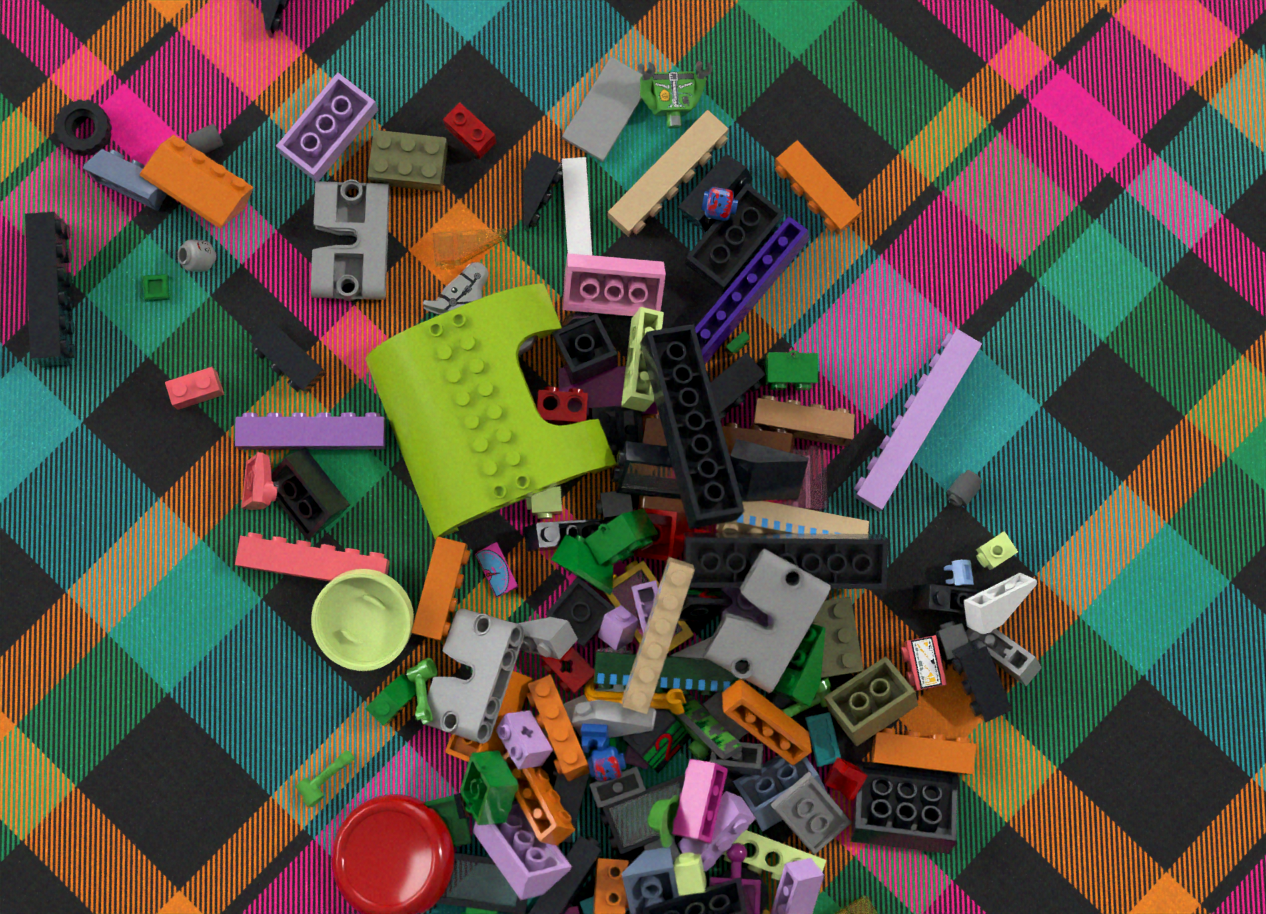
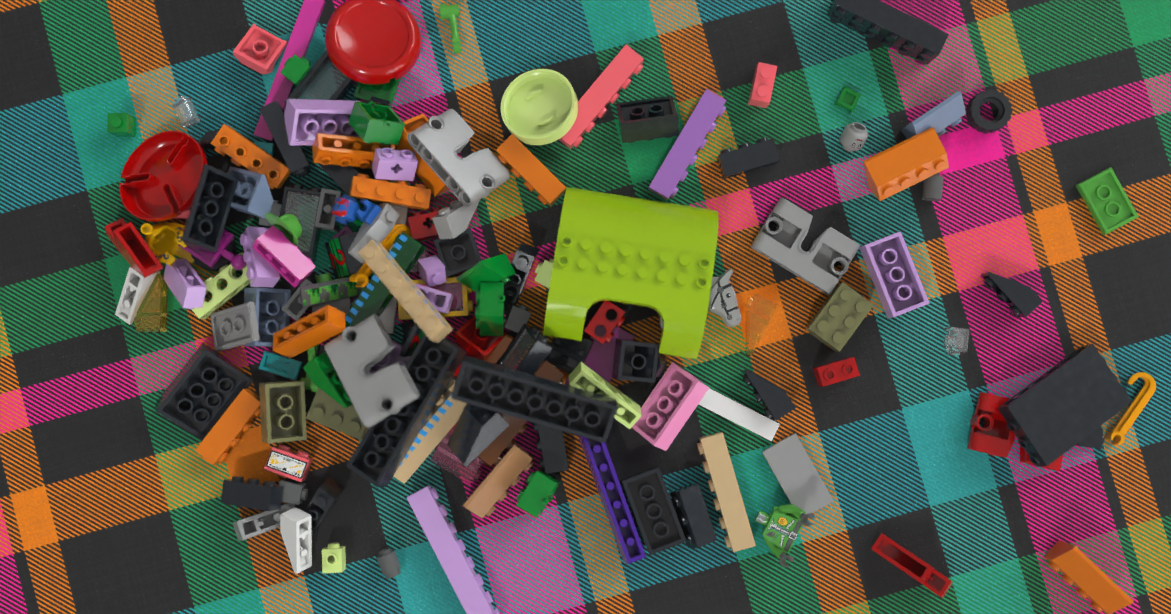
camera: 115 degrees right, 5 degrees up
(258, 485) = (670, 89): coral slope -> none
(360, 23) = (956, 340): none -> clear brick
(392, 700) = (476, 97): green slope -> none
(420, 674) = (482, 125): bright green brick -> none
(496, 570) = (522, 216): slope -> none
(689, 873) = (239, 221): yellowish green brick -> none
(719, 203) = (681, 512): blue head -> none
(737, 344) = (579, 468): green tile -> none
(817, 187) = (656, 589): orange brick -> none
(845, 778) = (245, 365): red panel -> none
(962, 573) = (333, 526): light blue tile -> none

